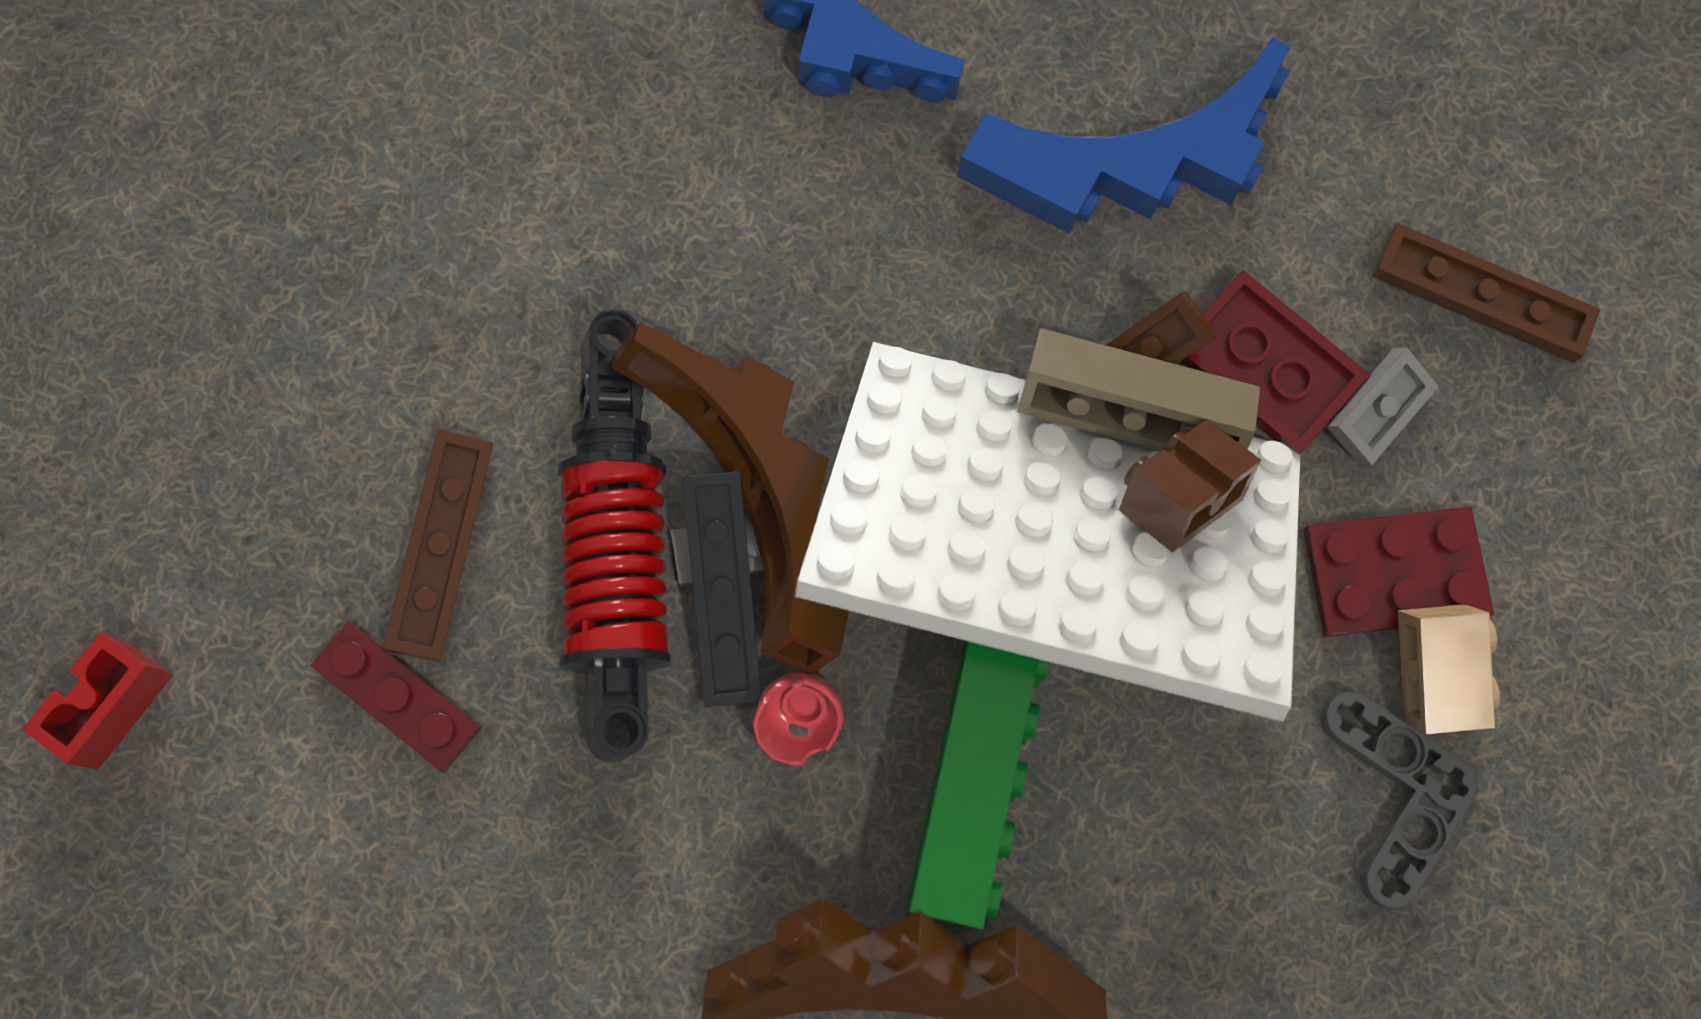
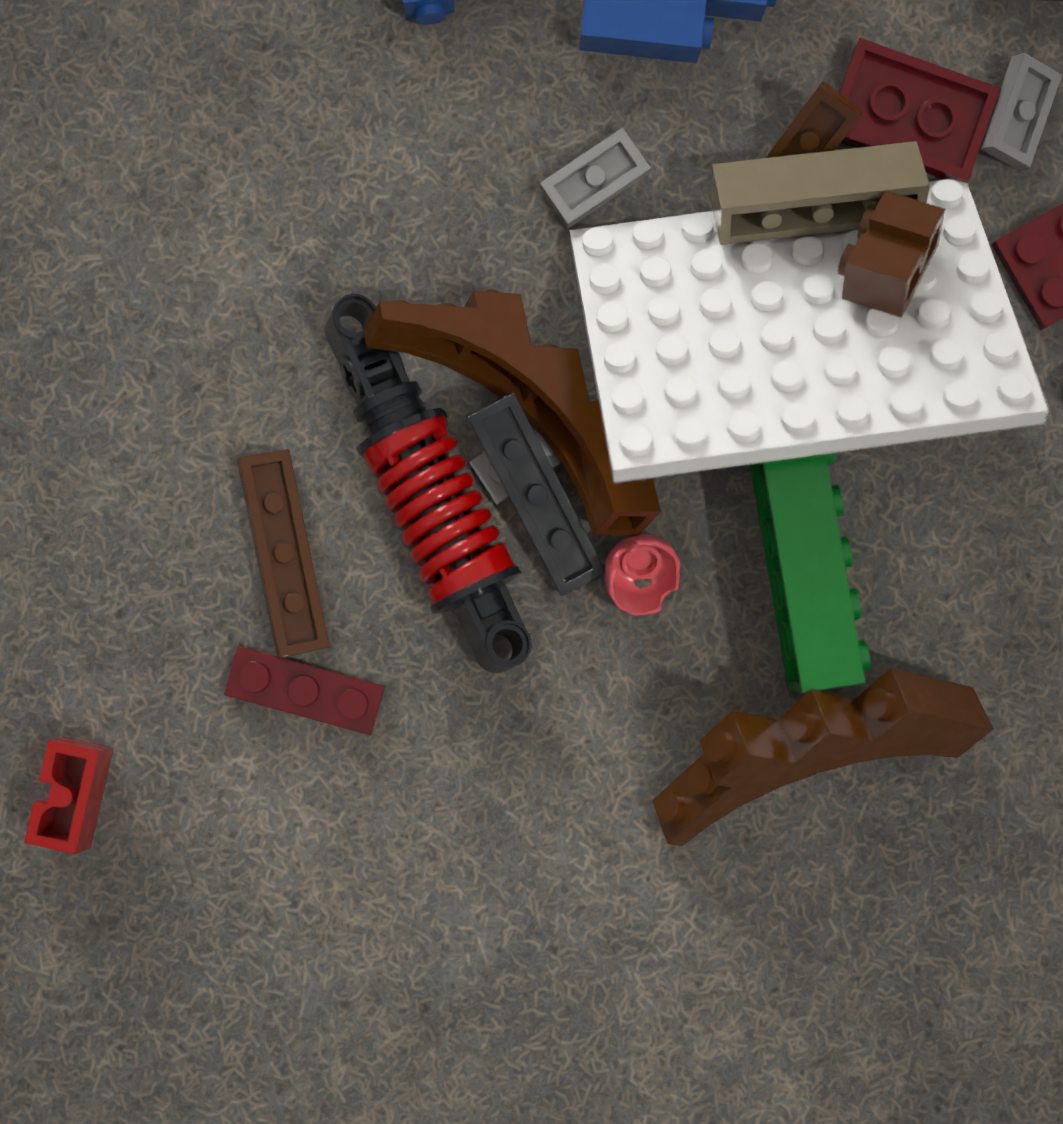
camera: 20 degrees left, 10 degrees up
(920, 301) = (595, 178): none -> light grey plate

